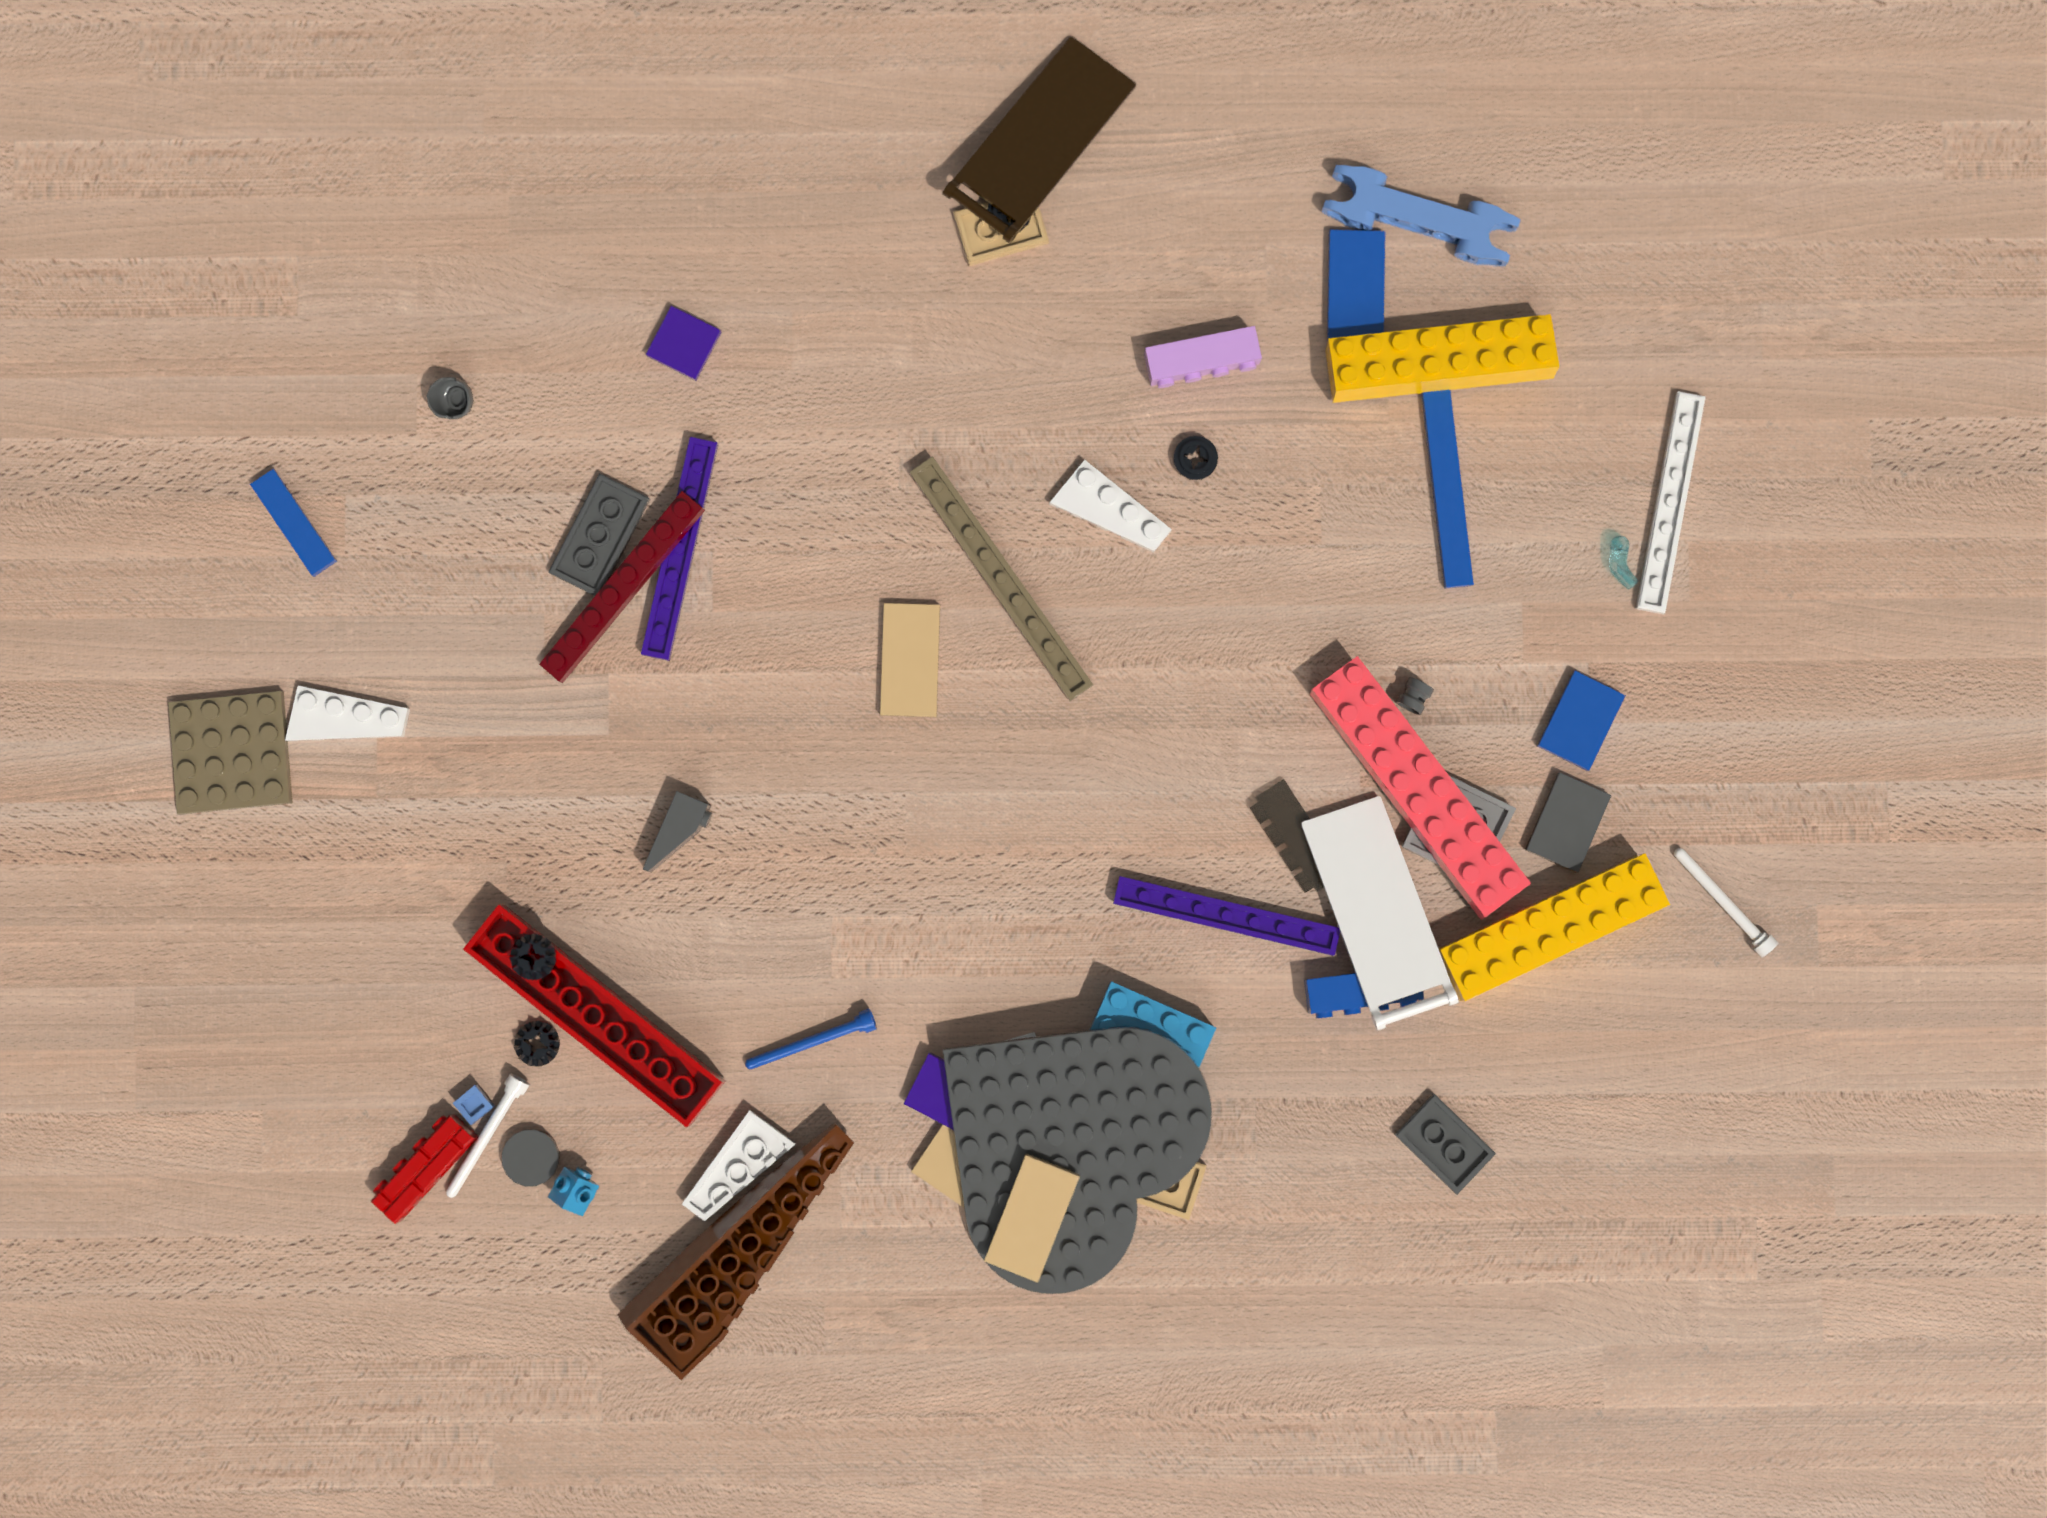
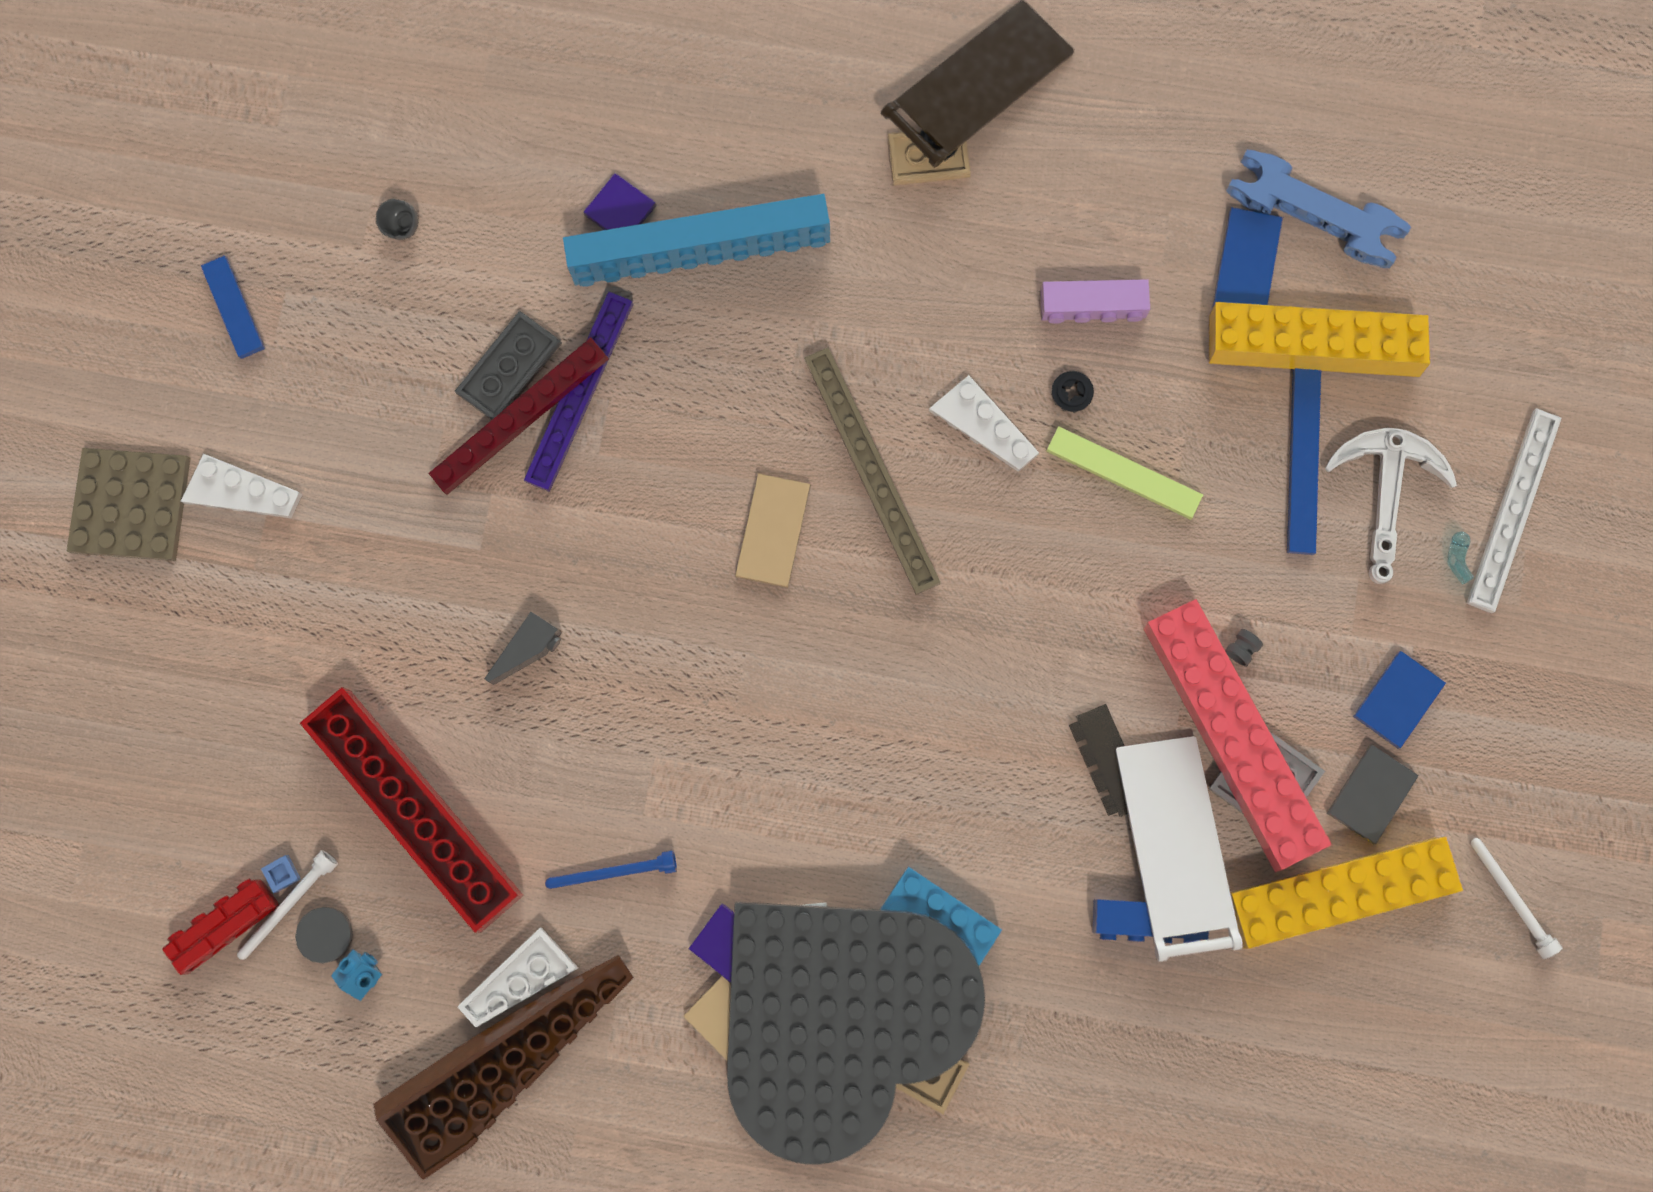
camera: 15 degrees right, 5 degrees down
(541, 946) = (369, 752): black gear -> none
(549, 1038) = (365, 823): black gear -> none
(774, 366) = (697, 240): none -> dark azure brick
(1032, 1217) = (791, 1084): tan tile -> none
(1226, 916) = (1030, 824): dark purple plate -> none
(1263, 534) = (1124, 473): none -> yellowish green tile
(1445, 1144) = (1205, 1086): dark grey tile -> none
(1538, 496) = (1390, 480): none -> white piece

